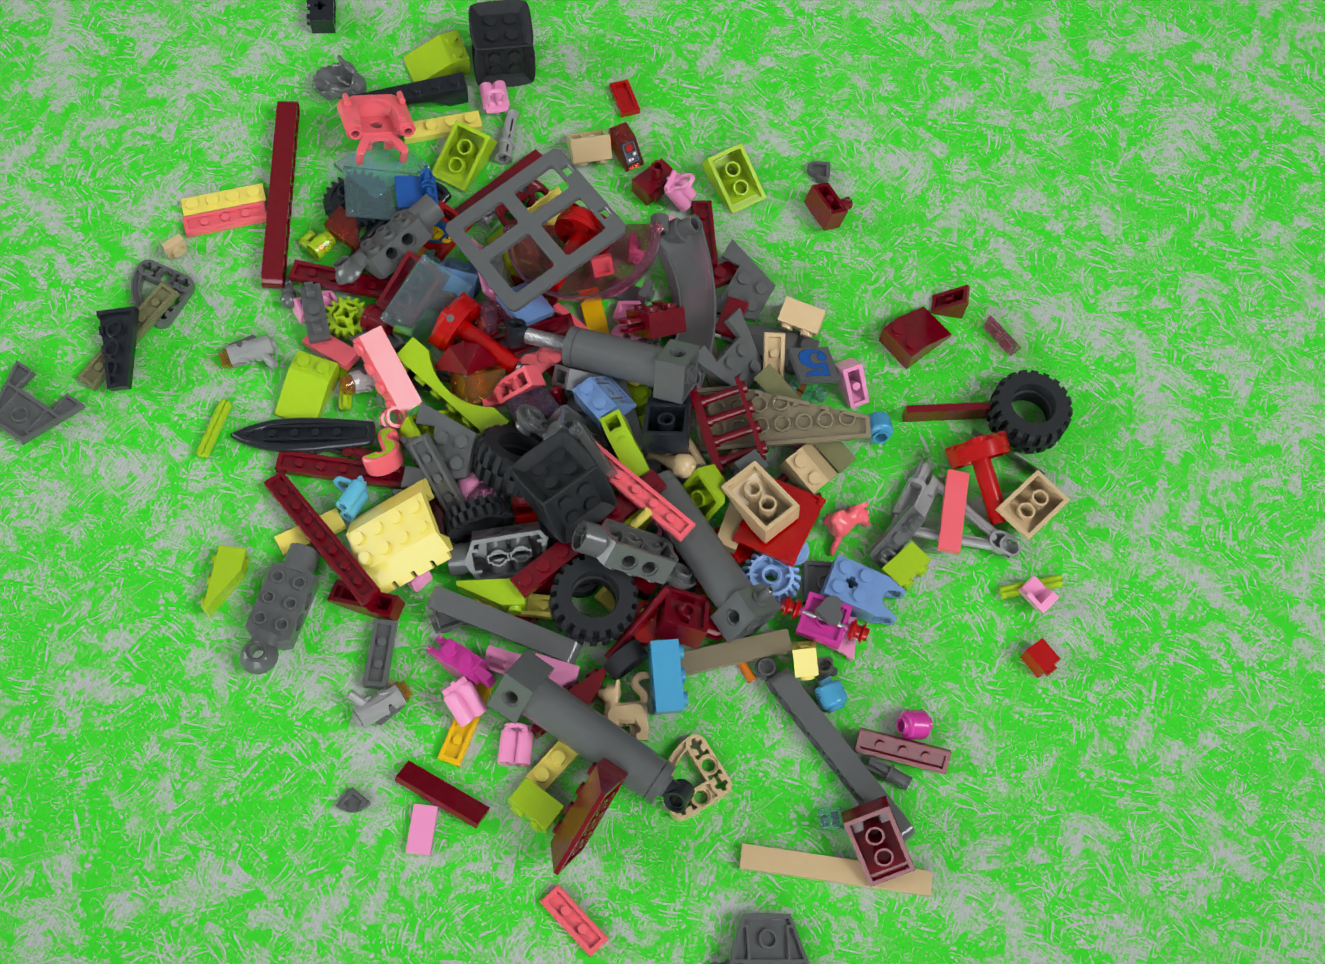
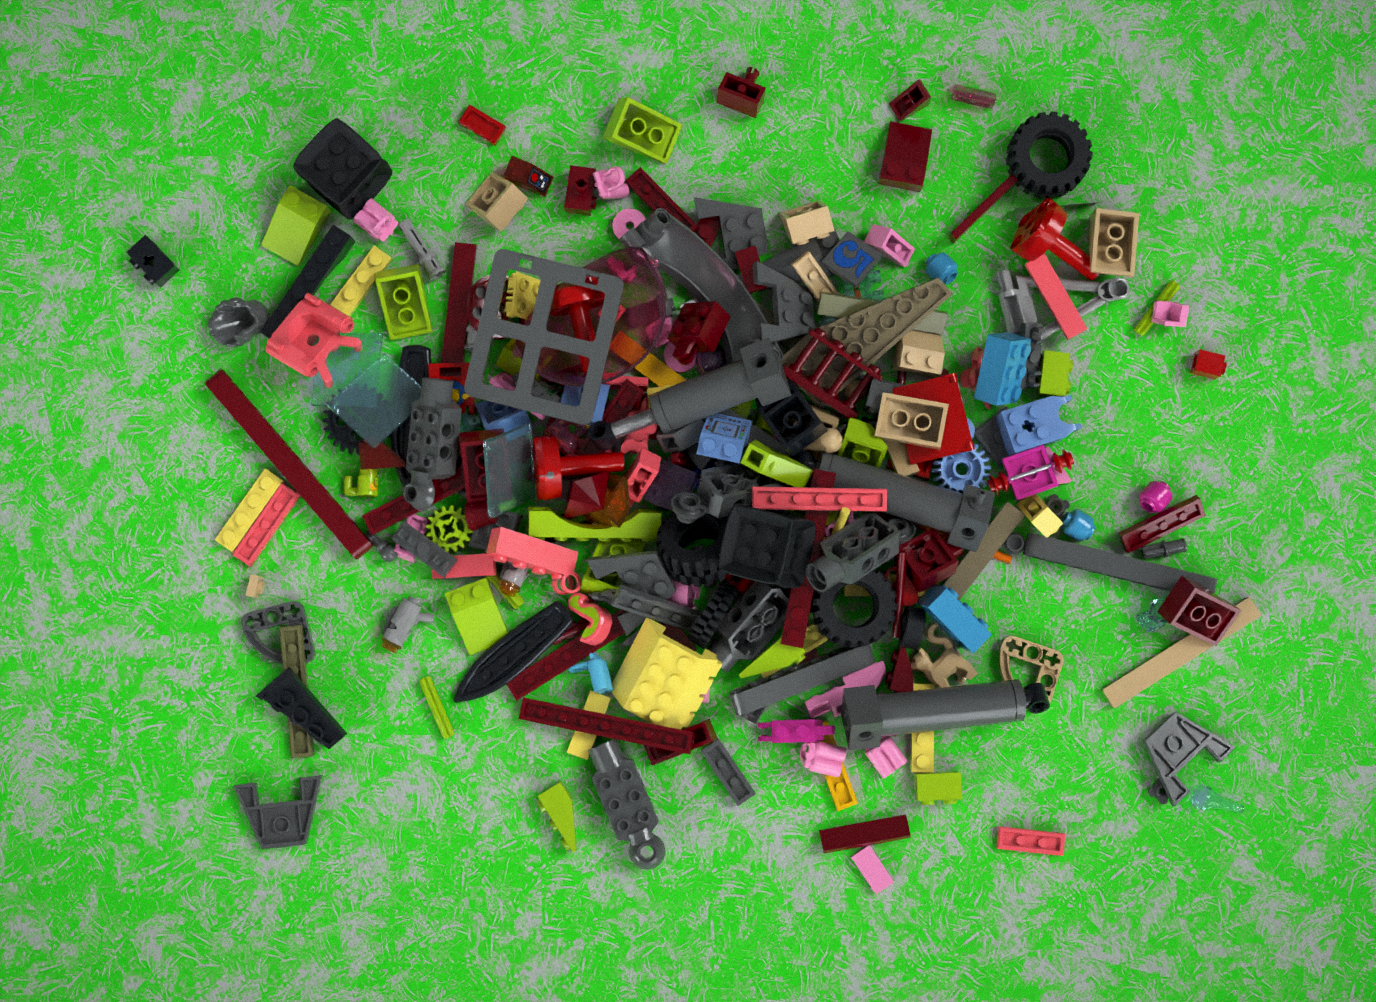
camera: 30 degrees left, 20 degrees up
(353, 802) = (806, 891): dark grey tile -> none
(381, 705) = (764, 809): light grey piece -> none
(412, 188) = (404, 373): blue hinge -> none
(581, 434) = (764, 499): dark grey hinge -> none
(585, 813) = (986, 770): slope -> none
(819, 170) = (704, 59): dark grey tile -> none
(830, 611) = (1031, 464): dark grey tile -> none
(866, 522) = (1002, 368): none -> dark azure brick

